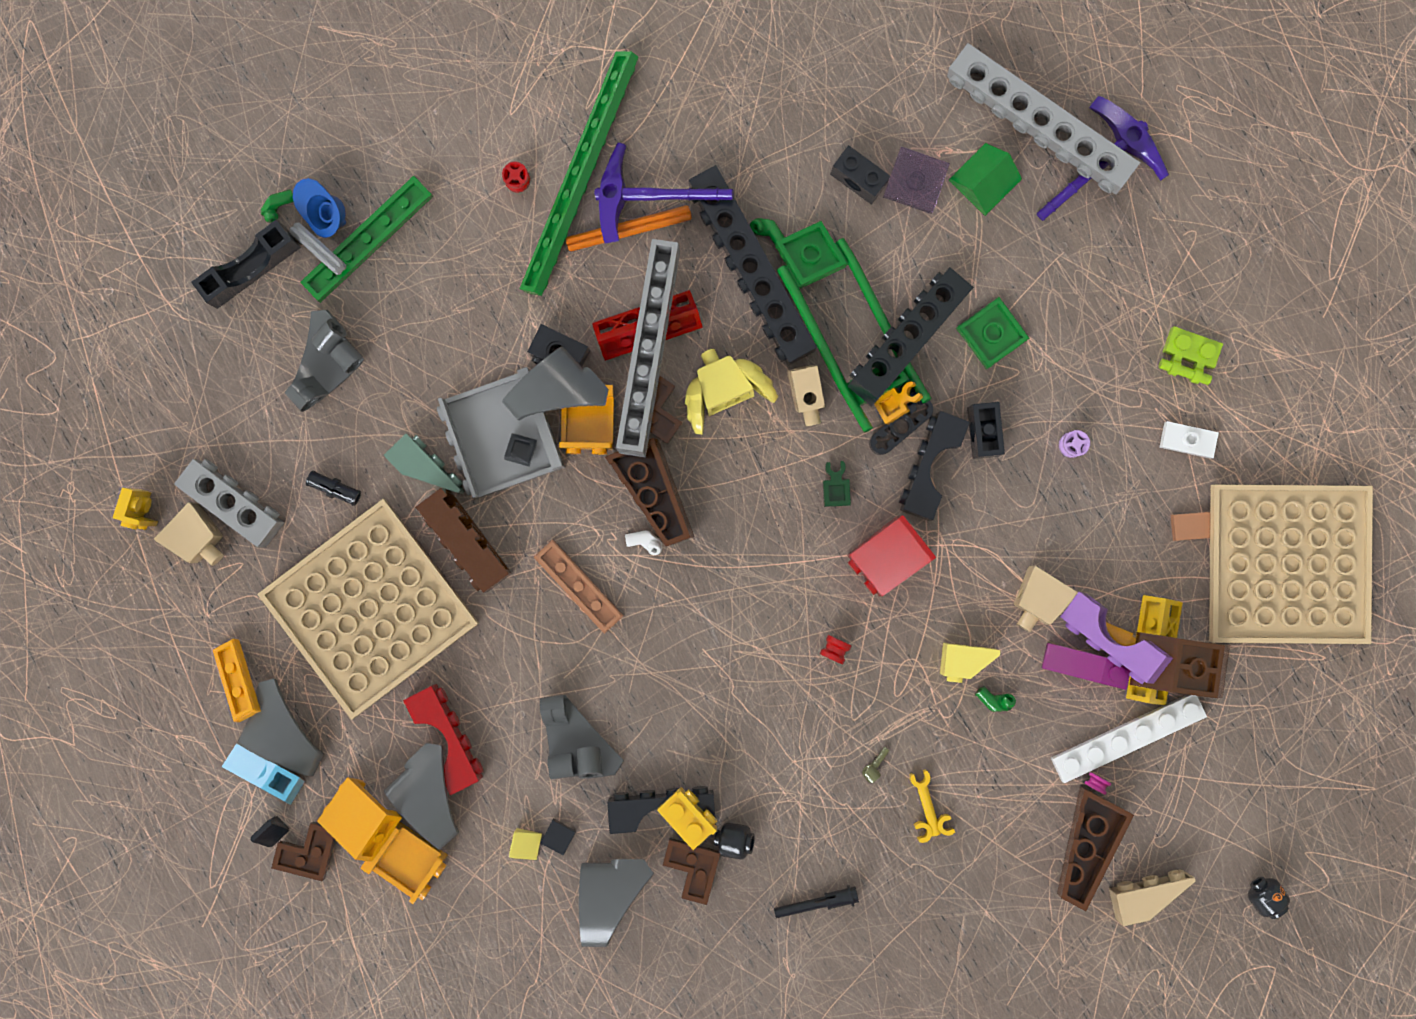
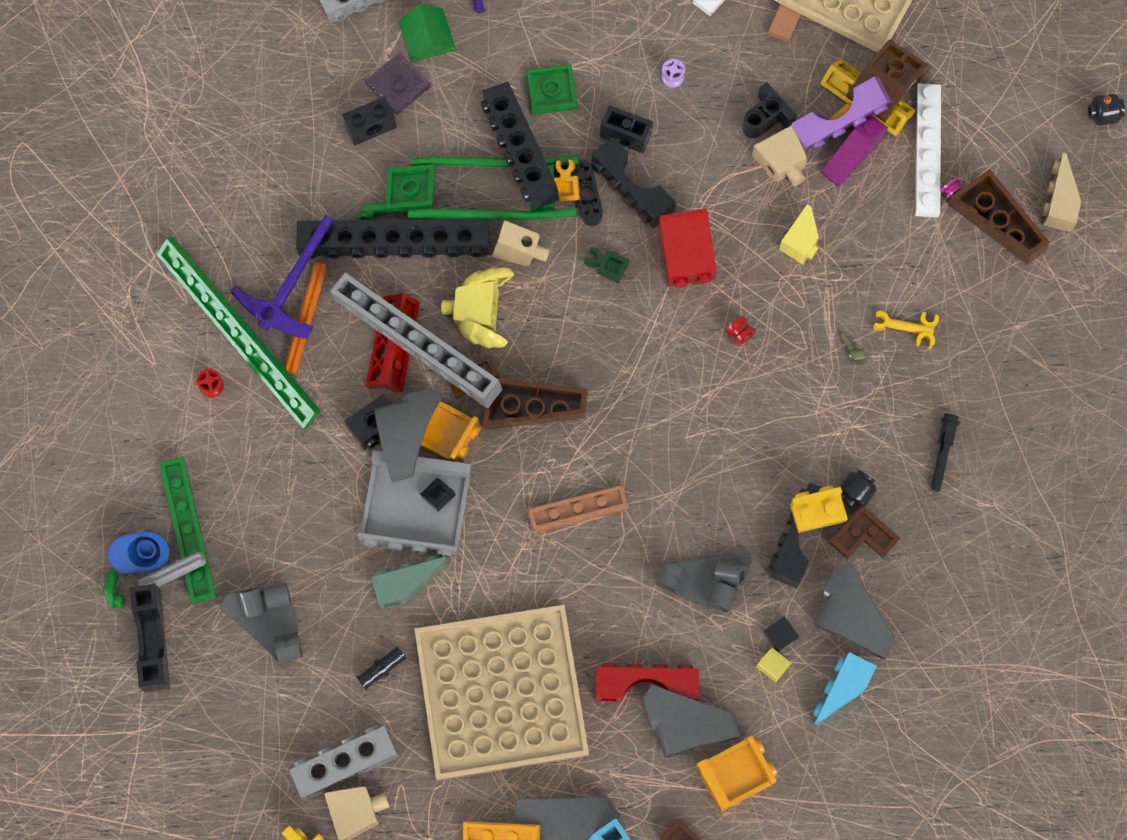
camera: 65 degrees left, 15 degrees down
(358, 820) = (678, 787): light orange panel -> none
(463, 539) = (488, 578): reddish brown wedge -> none
(538, 923) = (849, 683): none -> medium azure slope
(646, 539) = (569, 434): white arm -> none
(995, 703) = (848, 233): green arm -> none
(1074, 557) = (763, 117): none -> black tile

